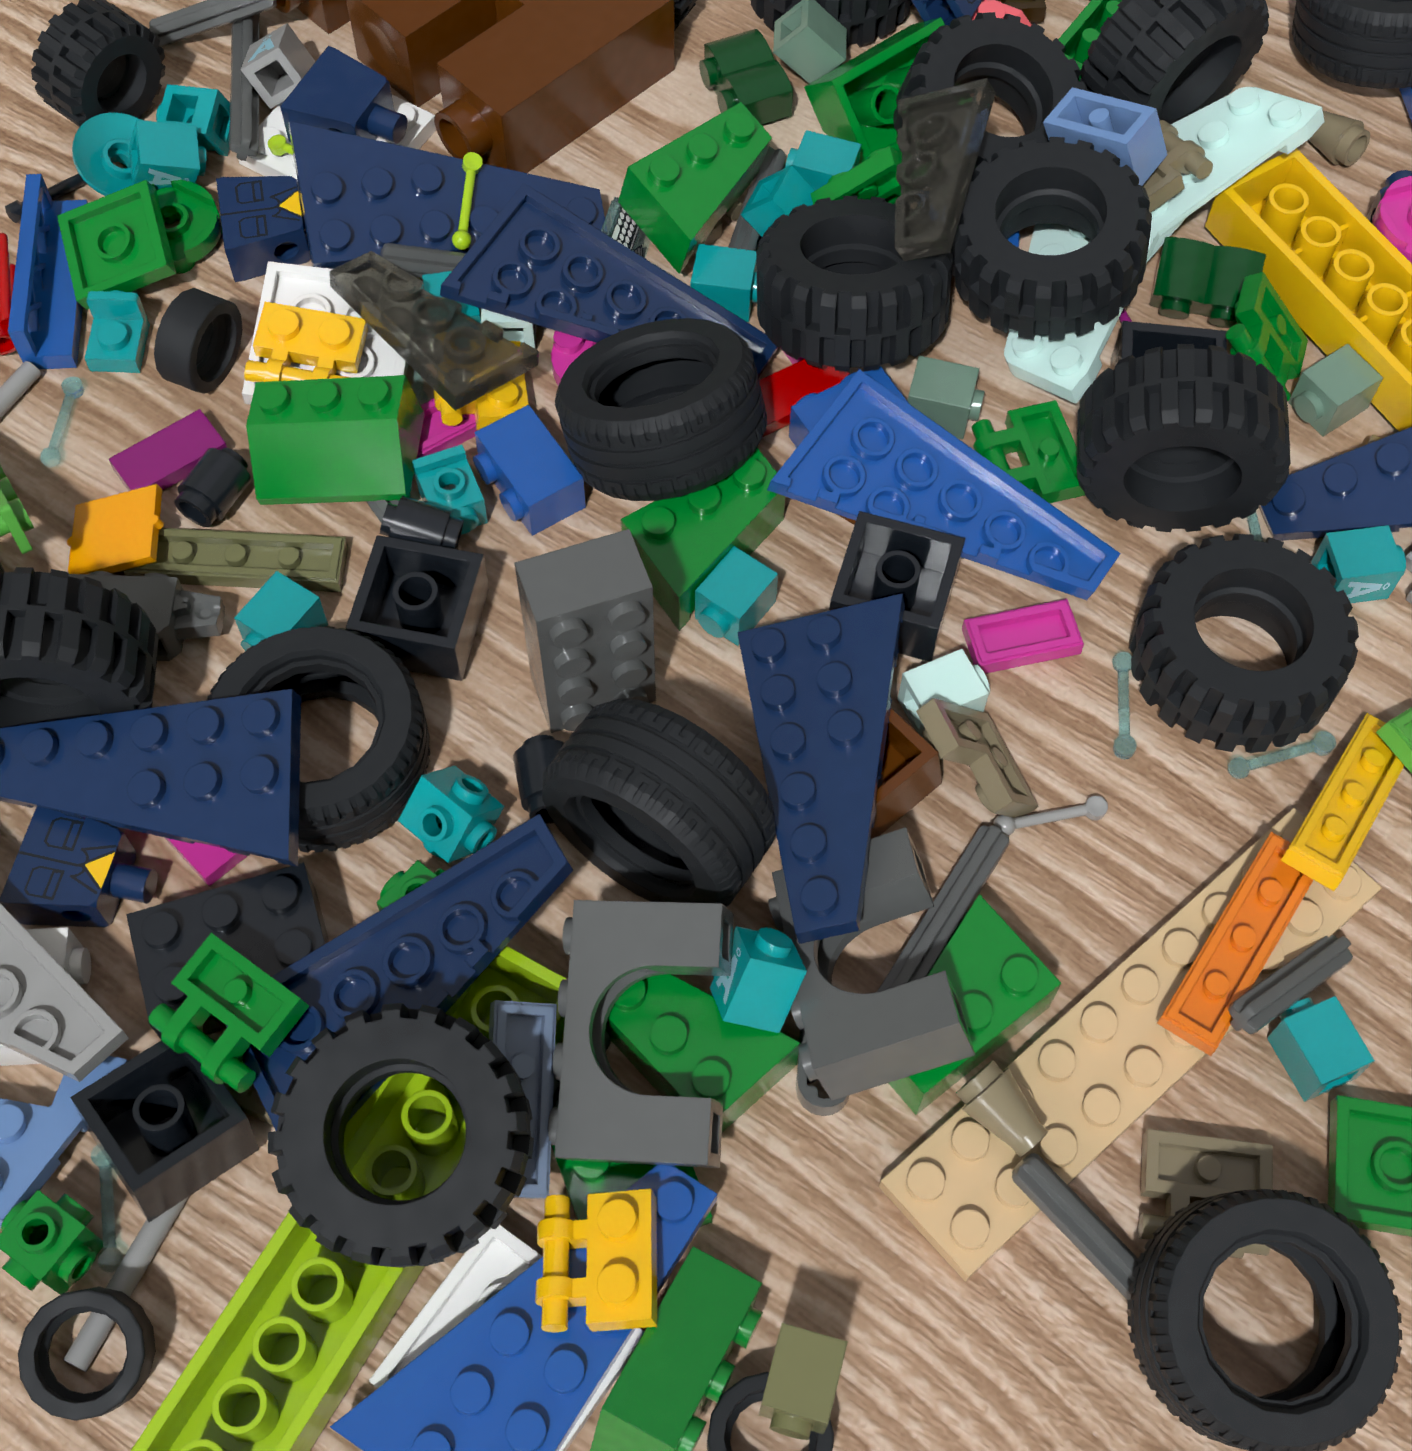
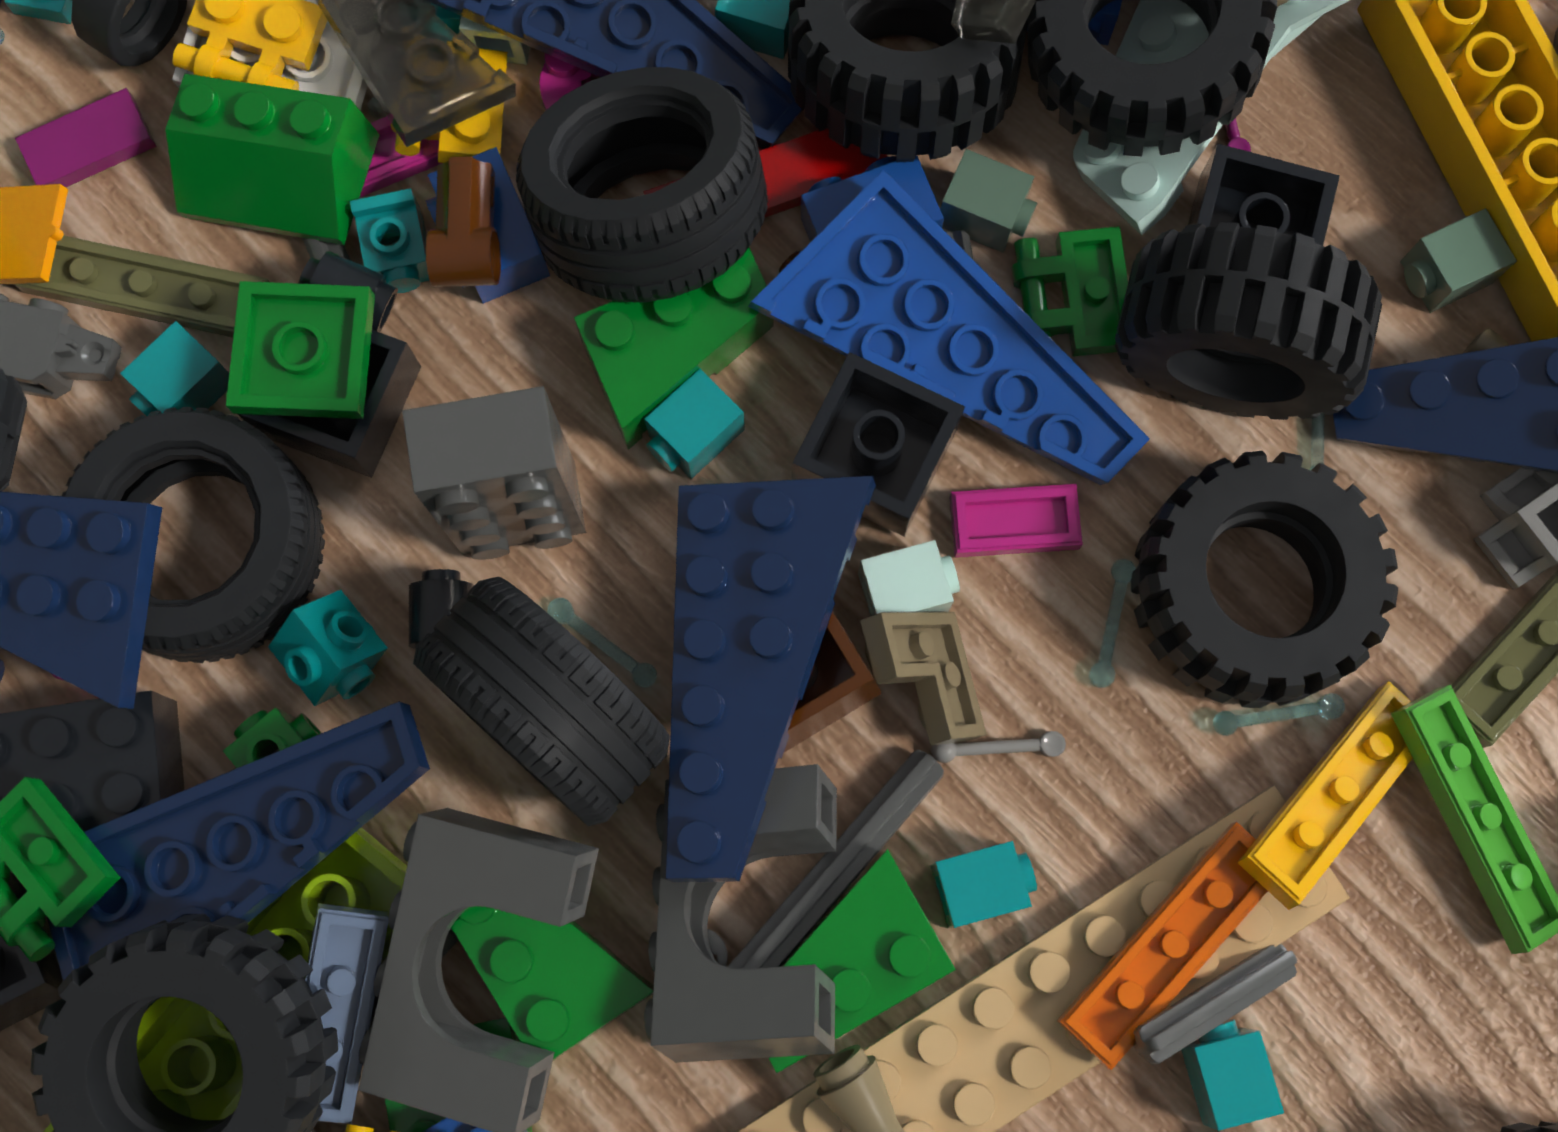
camera: 10 degrees right, 15 degrees up
(212, 486) = (126, 192): black brick -> none
(397, 566) = (300, 350): none -> green plate
(518, 468) = (464, 243): none -> reddish brown piece
(761, 979) = (620, 920): teal brick -> none
(1065, 922) = (984, 884): none -> teal brick
(1202, 279) = (1338, 92): dark green brick -> none
(1267, 330) = (1394, 177): green plate -> none
(1362, 562) = (1427, 495): teal brick -> none

